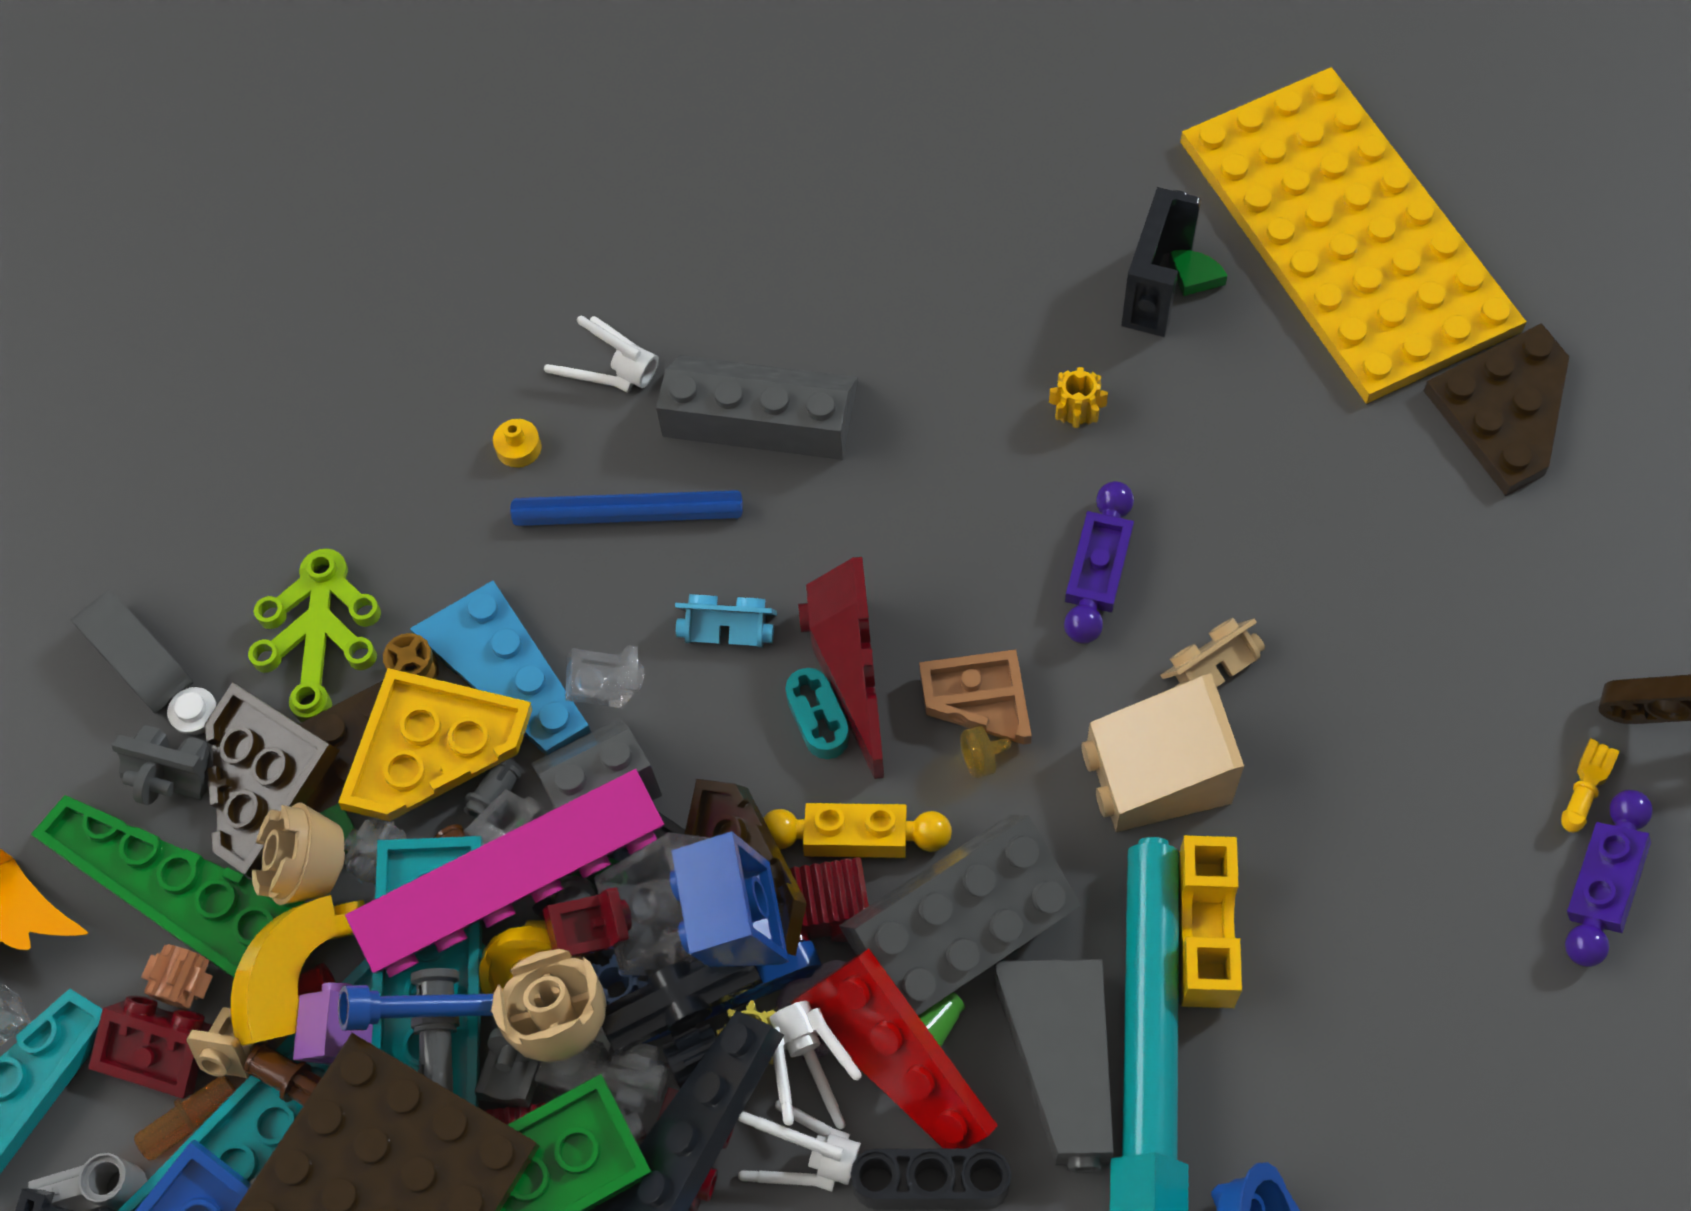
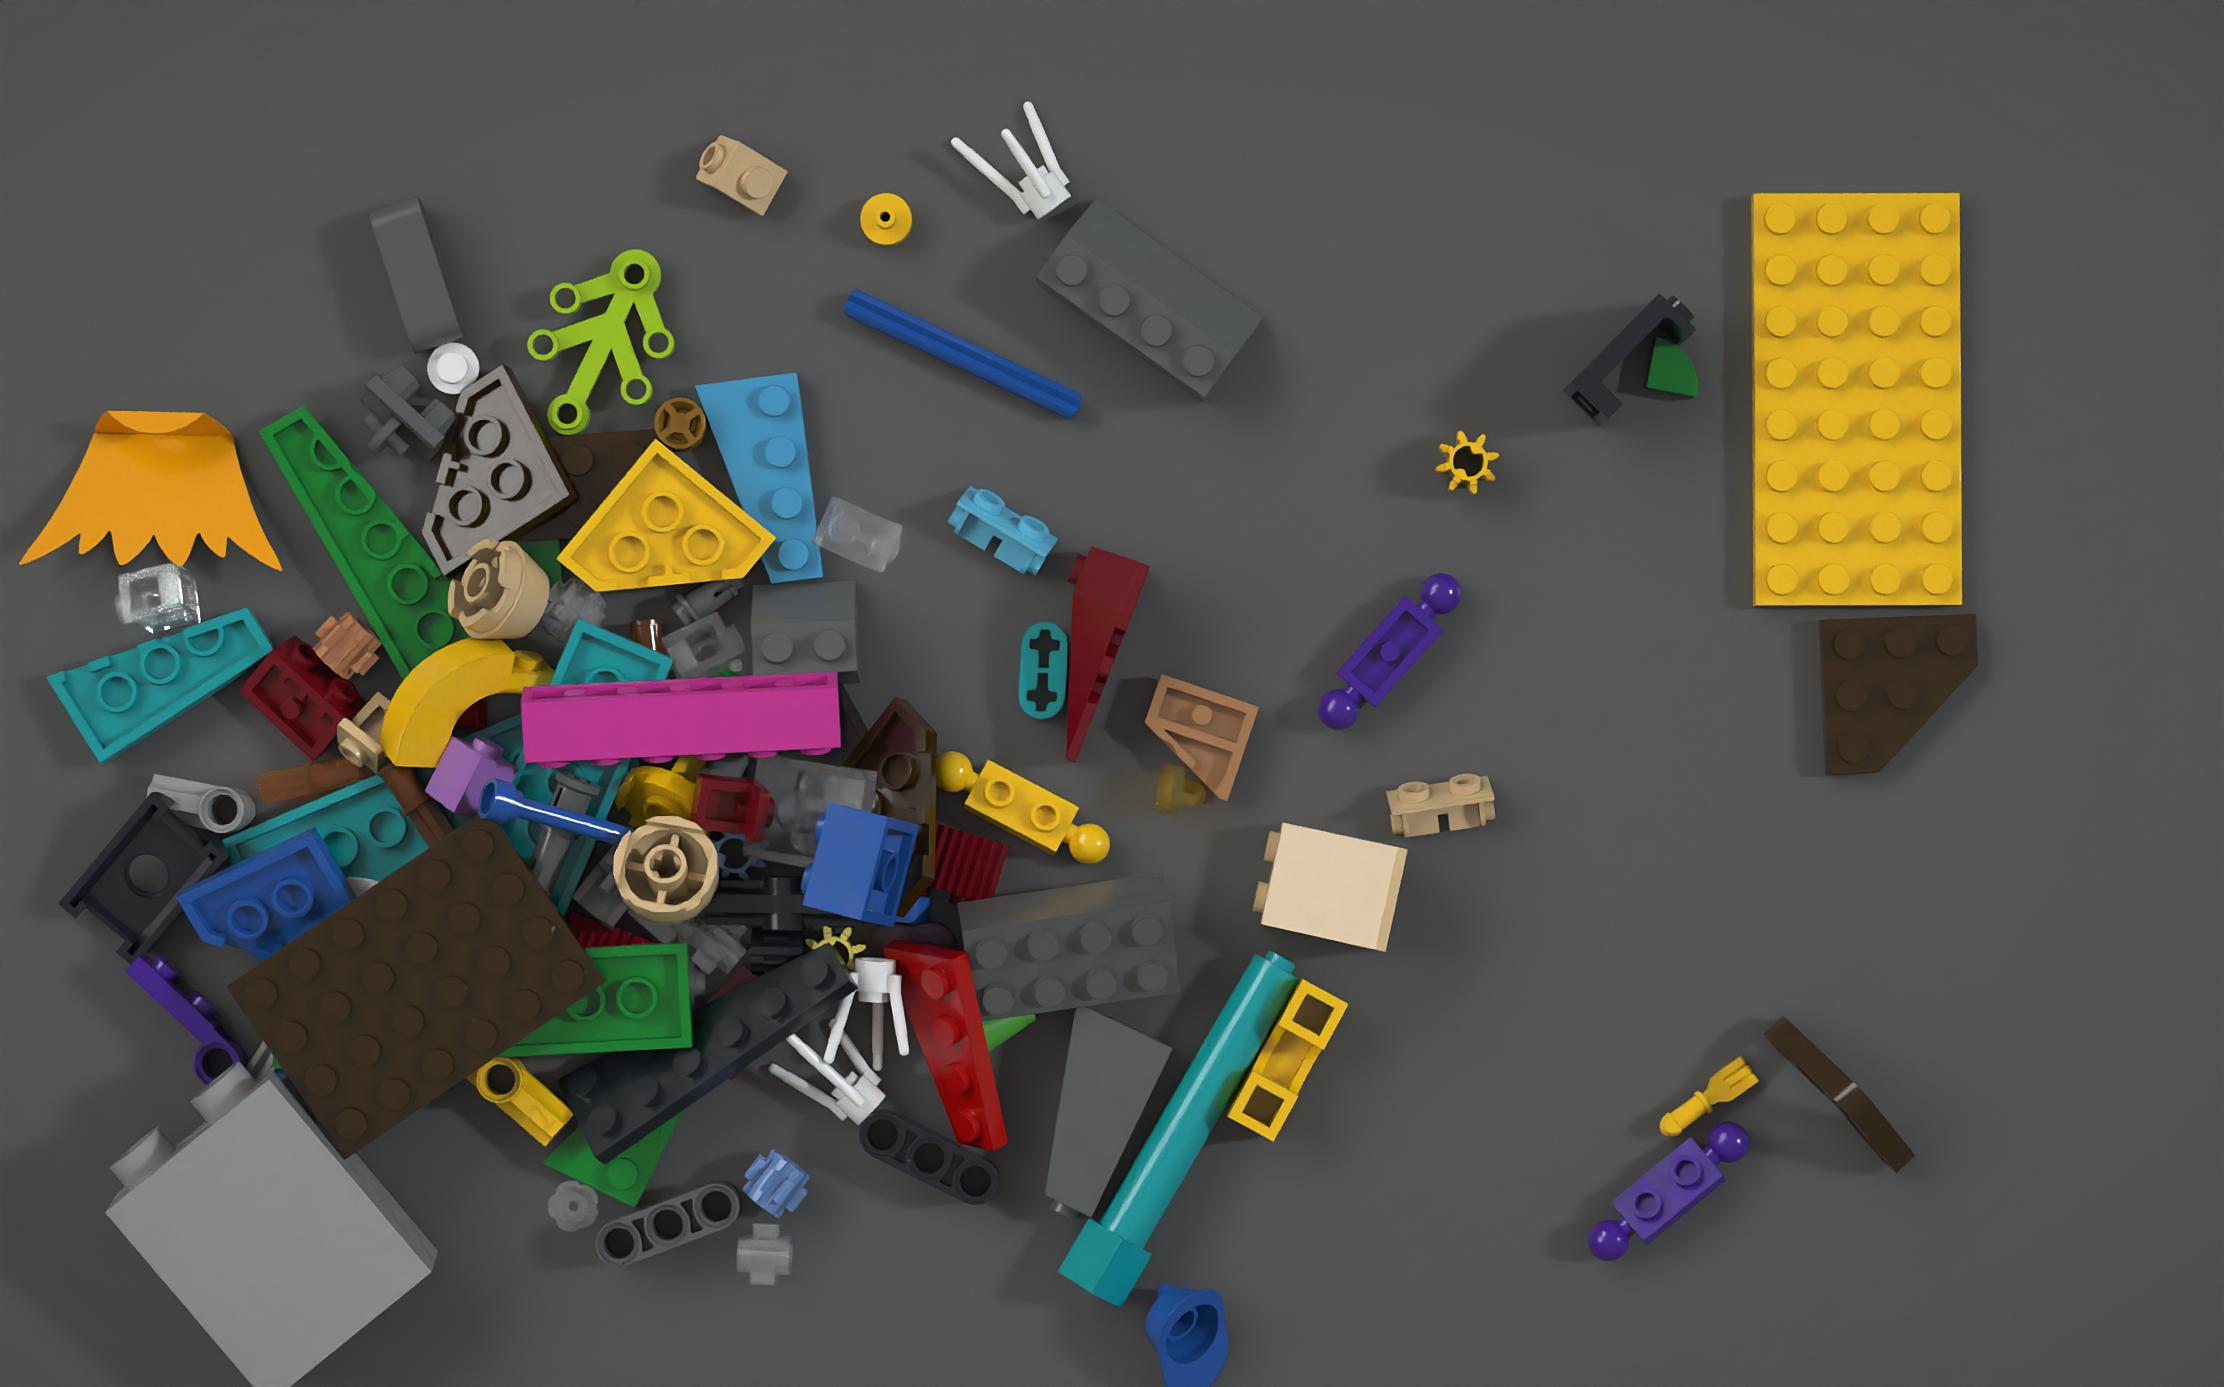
camera: 15 degrees right, 25 degrees up
(380, 458) = (740, 174): none -> tan bracket

